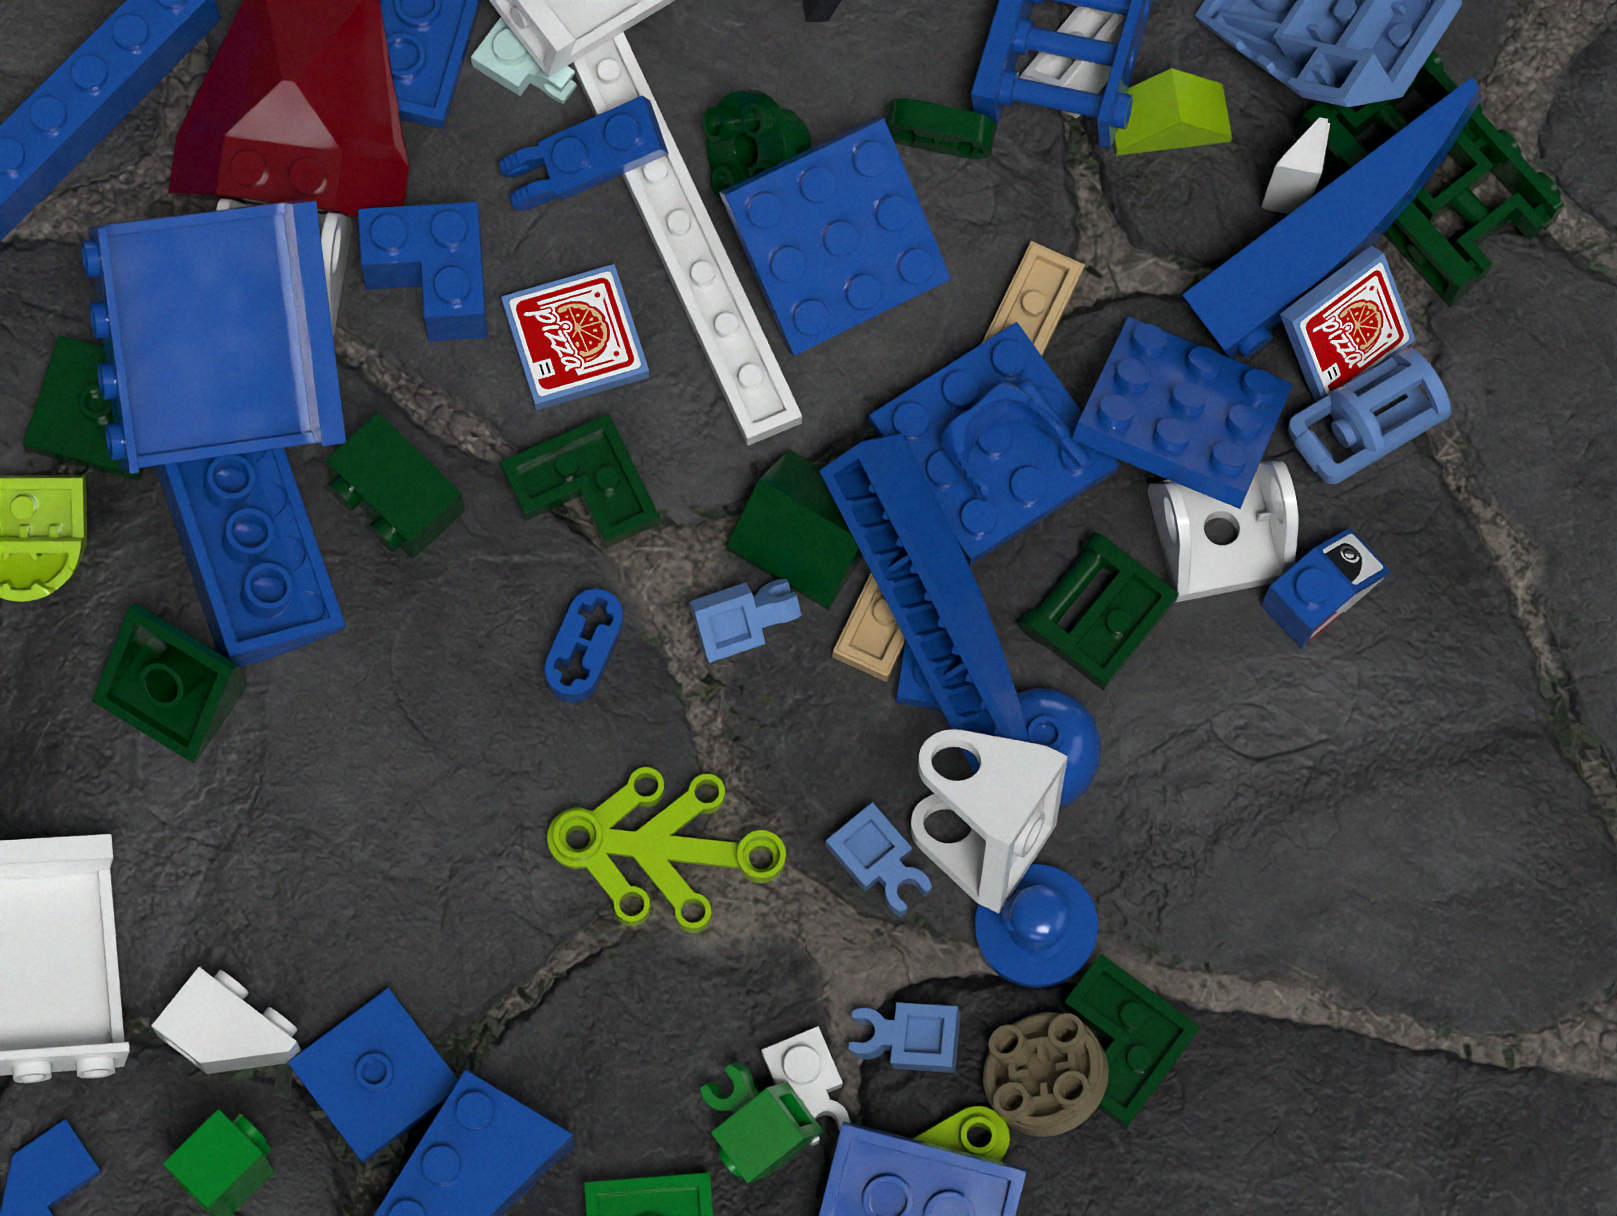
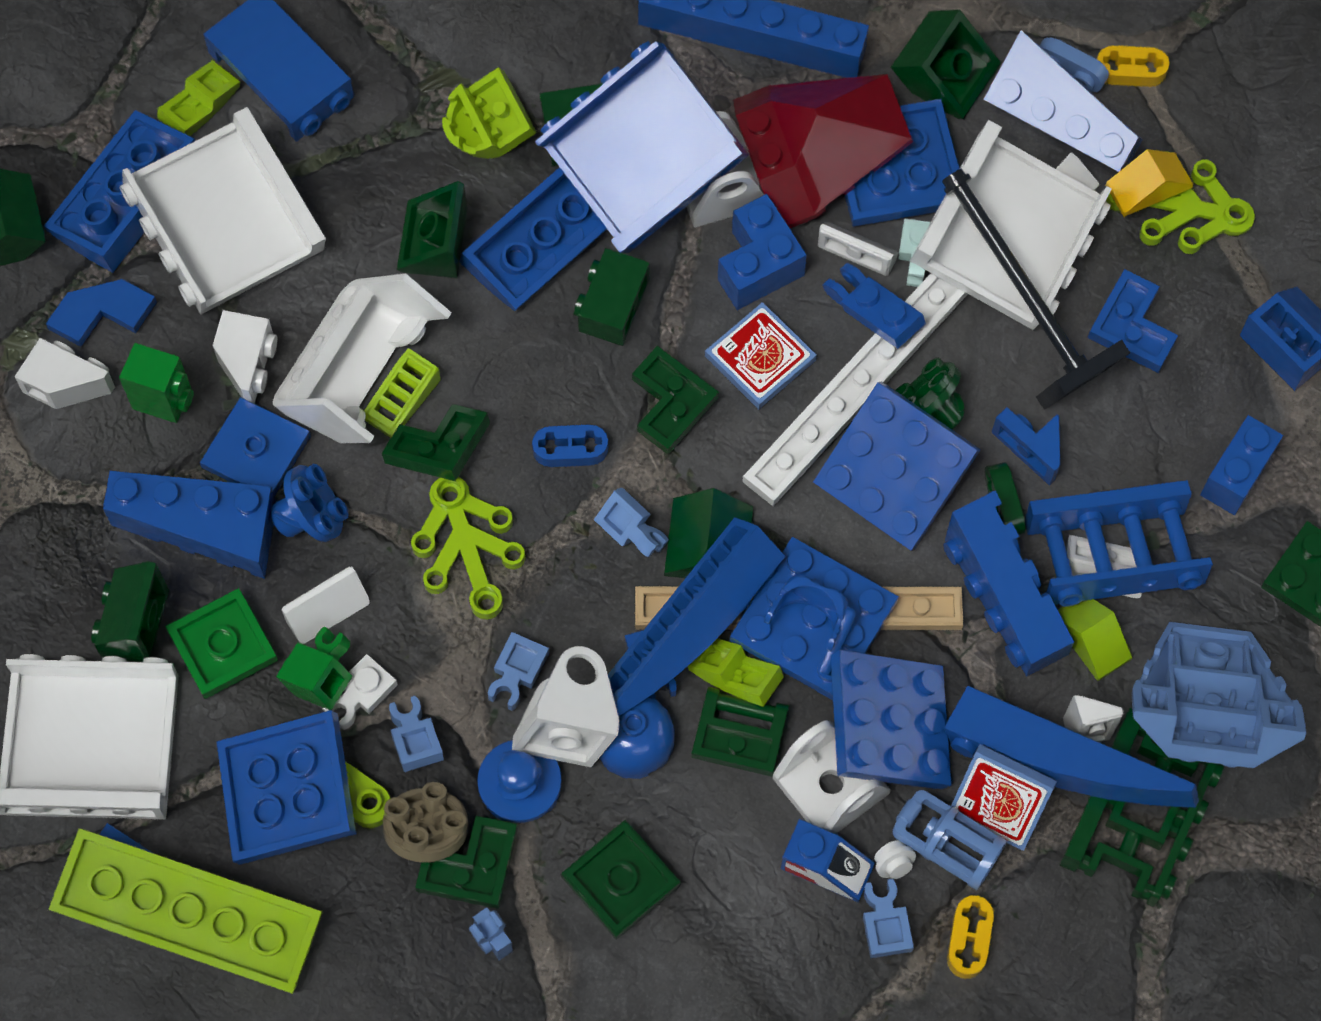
camera: 70 degrees right, 5 degrees down
(295, 885) = (351, 351): none -> white windscreen
(370, 791) = (400, 373): none -> lime slope
(481, 137) = (857, 248): none -> white slope
(512, 1034) = (309, 505): none -> blue plate
(514, 823) = (441, 452): none -> dark green plate
(665, 1075) = (326, 605): none -> white slope
(892, 52) = (1036, 450): none -> blue slope
(1024, 571) = (732, 671): none -> lime slope
(1064, 182) = (1006, 585): none -> blue wedge
(1232, 855) = (620, 879): none -> dark green plate
(1237, 1053) = (490, 934): none -> medium blue plate
(1363, 499) = (894, 860): none -> white plate
(1445, 551) = (886, 927): none -> medium blue plate
(1506, 446) = (960, 935): none -> yellow beam

